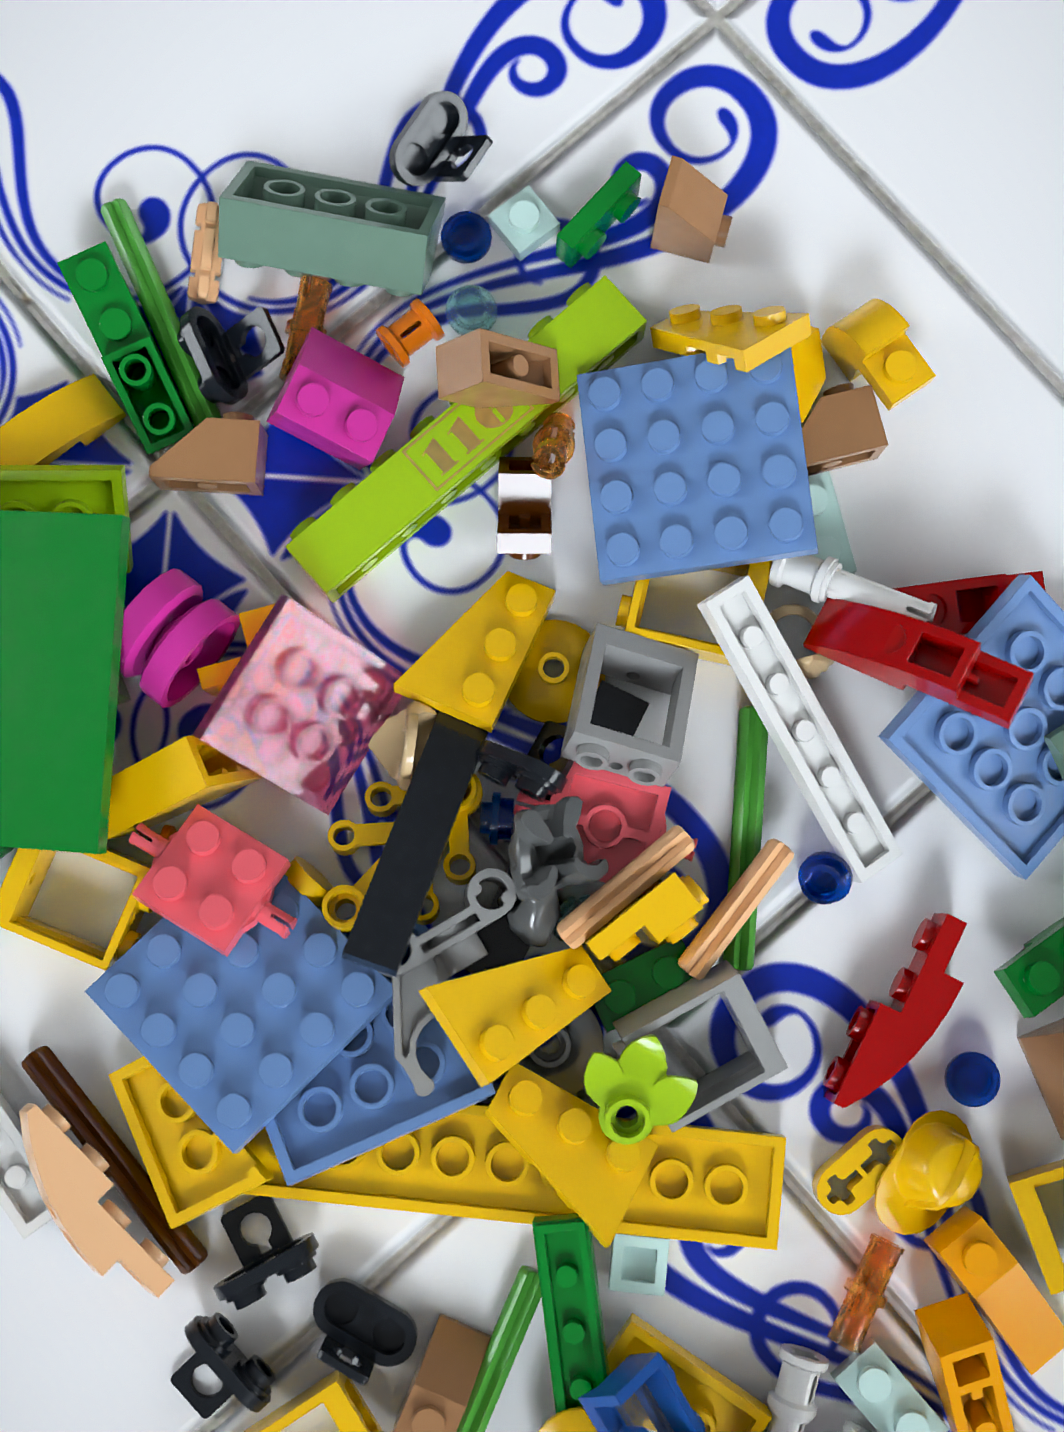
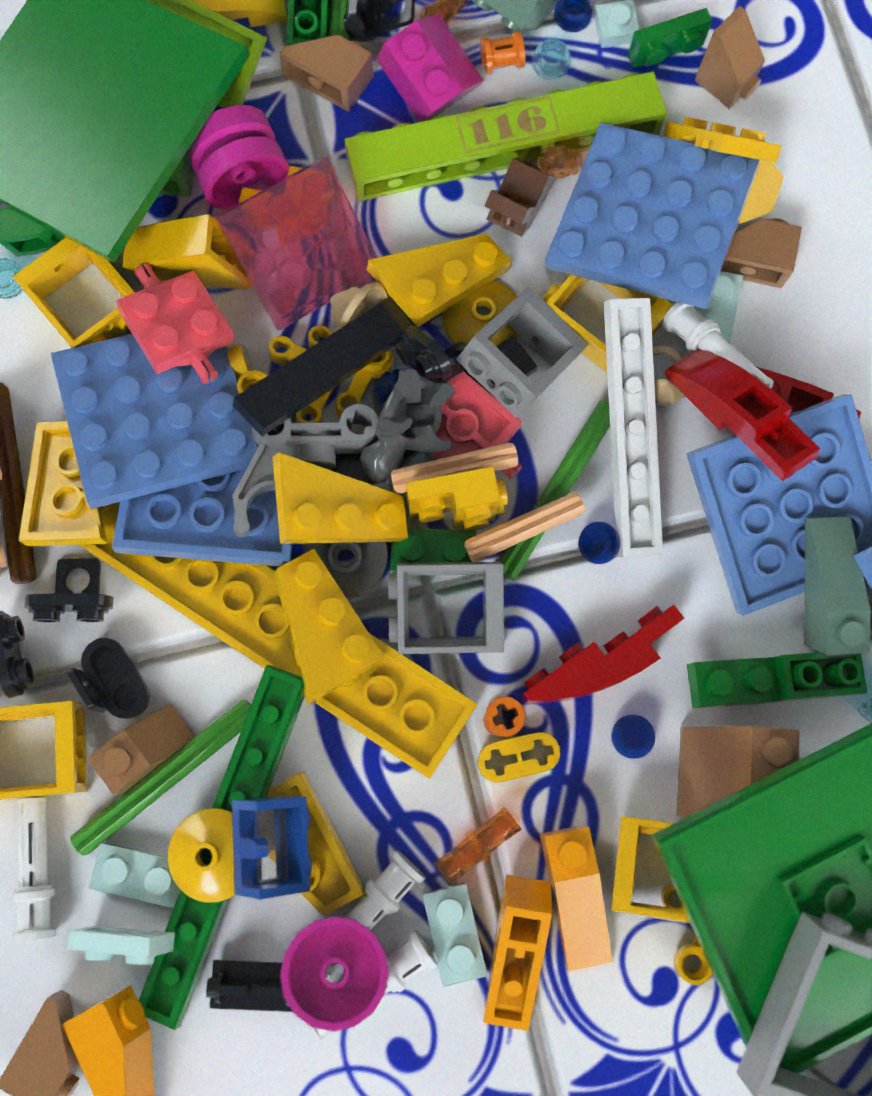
camera: 25 degrees right, 5 degrees down
(496, 371) = (546, 89): medium nougat slope -> none
(638, 1264) = (327, 738): light aqua plate -> none
(640, 1082) = (393, 601): lime plate -> none
(818, 1152) = (507, 704): none -> orange bush
(875, 345) = (818, 207): yellow brick -> none
(928, 1174) = (565, 785): yellow piece -> none

